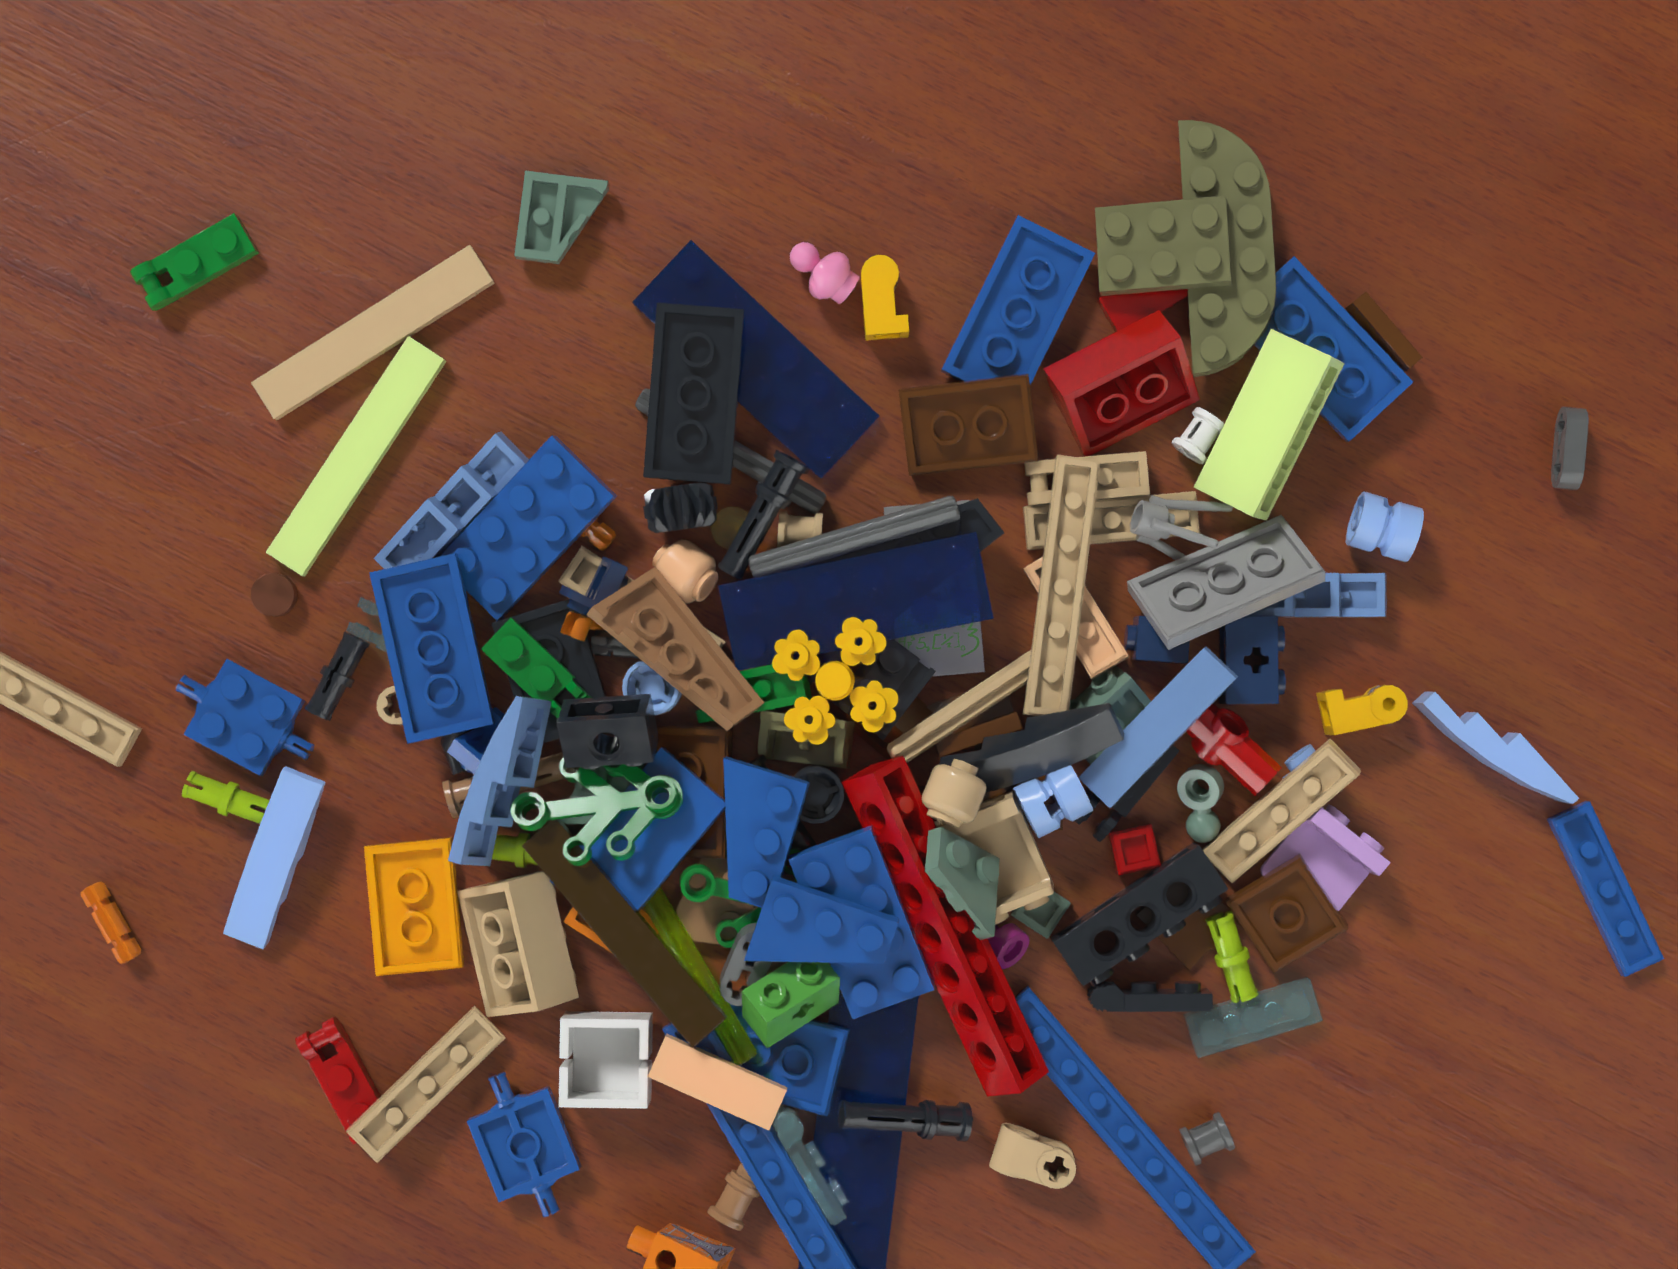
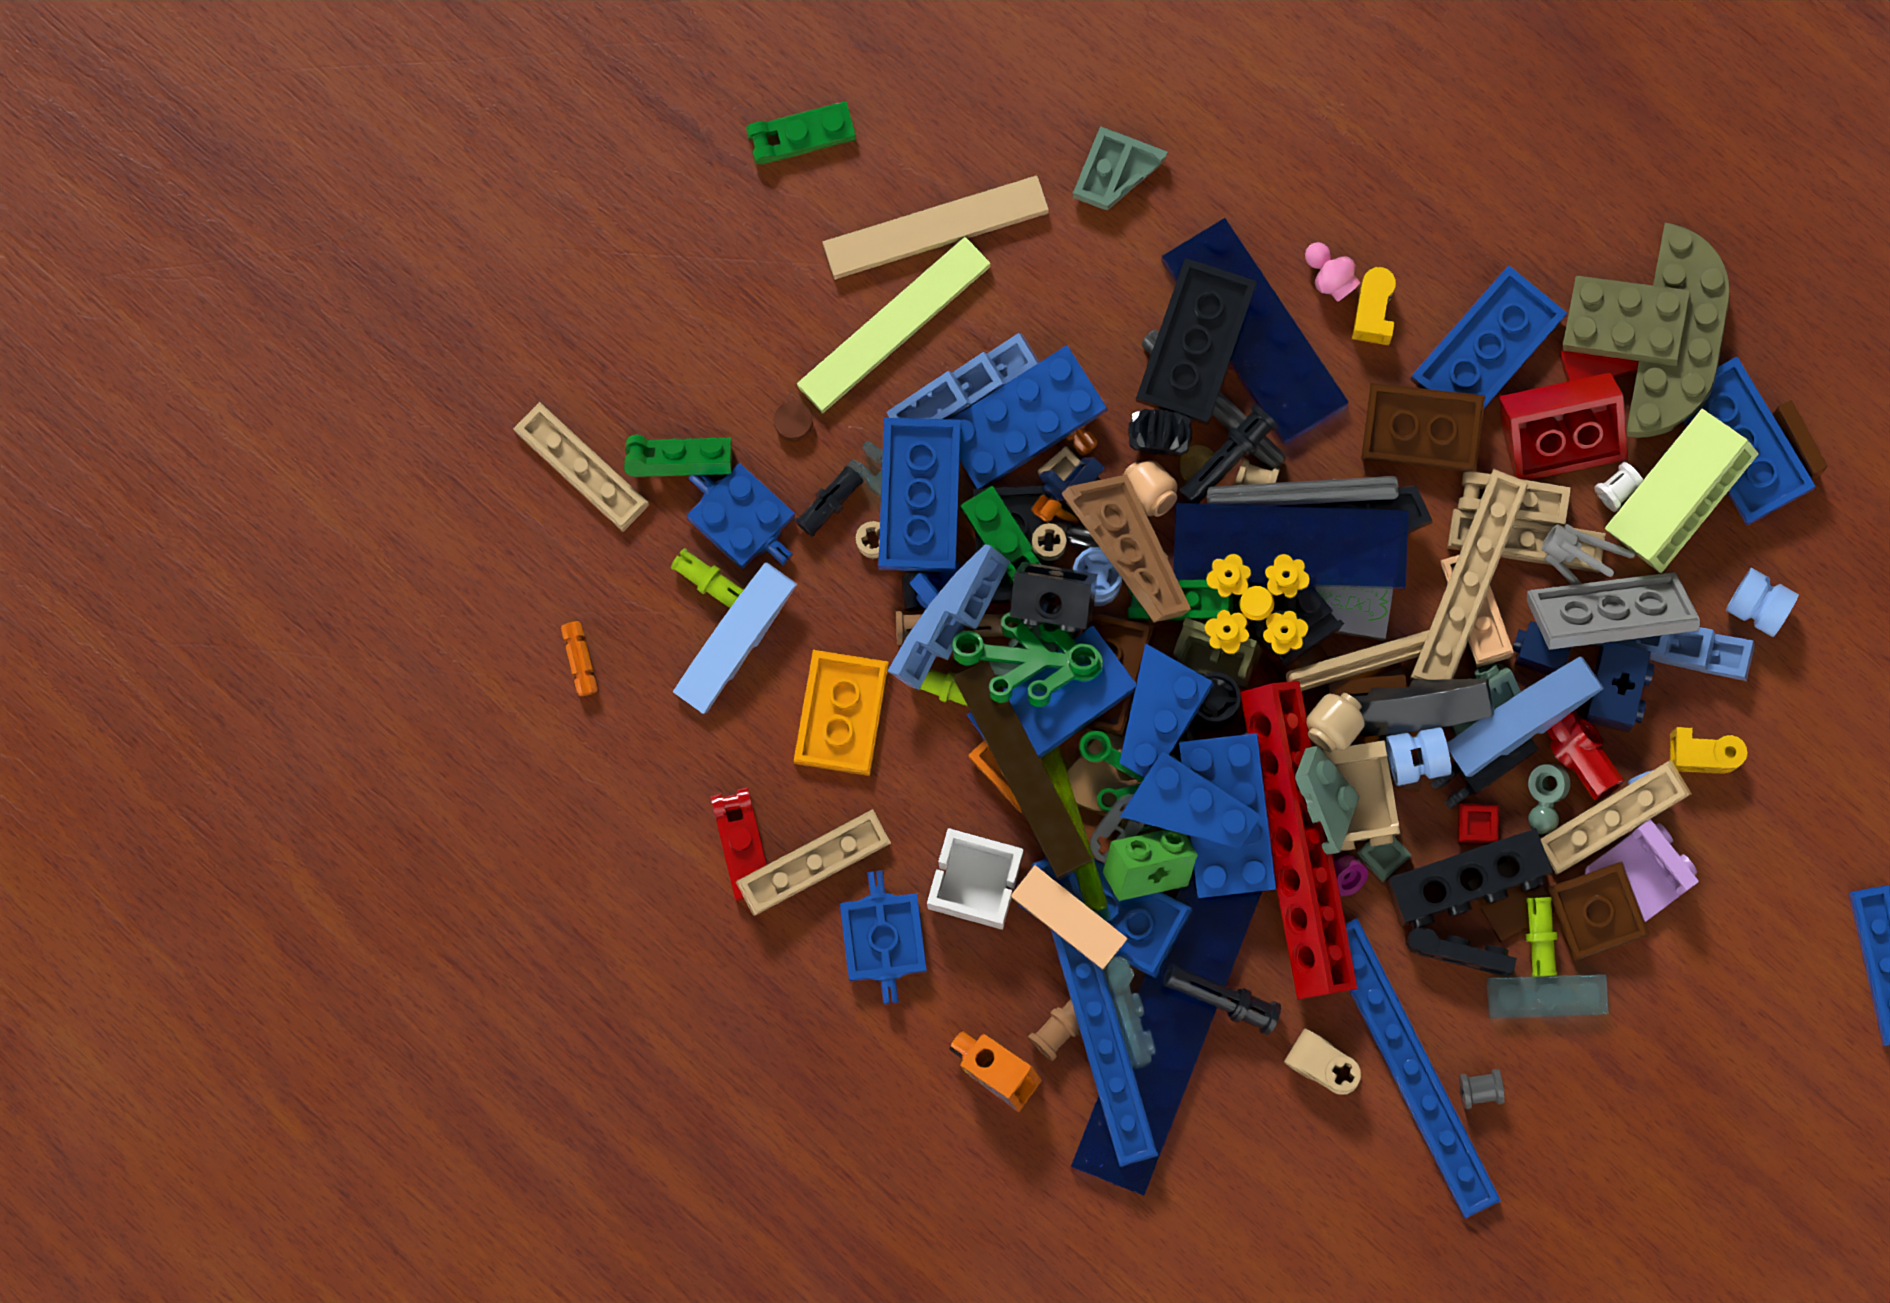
camera: 20 degrees right, 10 degrees down
(156, 670) = (677, 456): none -> green plate
(518, 945) = (923, 764): tan slope -> none
(578, 656) = (1039, 535): none -> tan bush
(1507, 755) = (1826, 828): light blue slope -> none

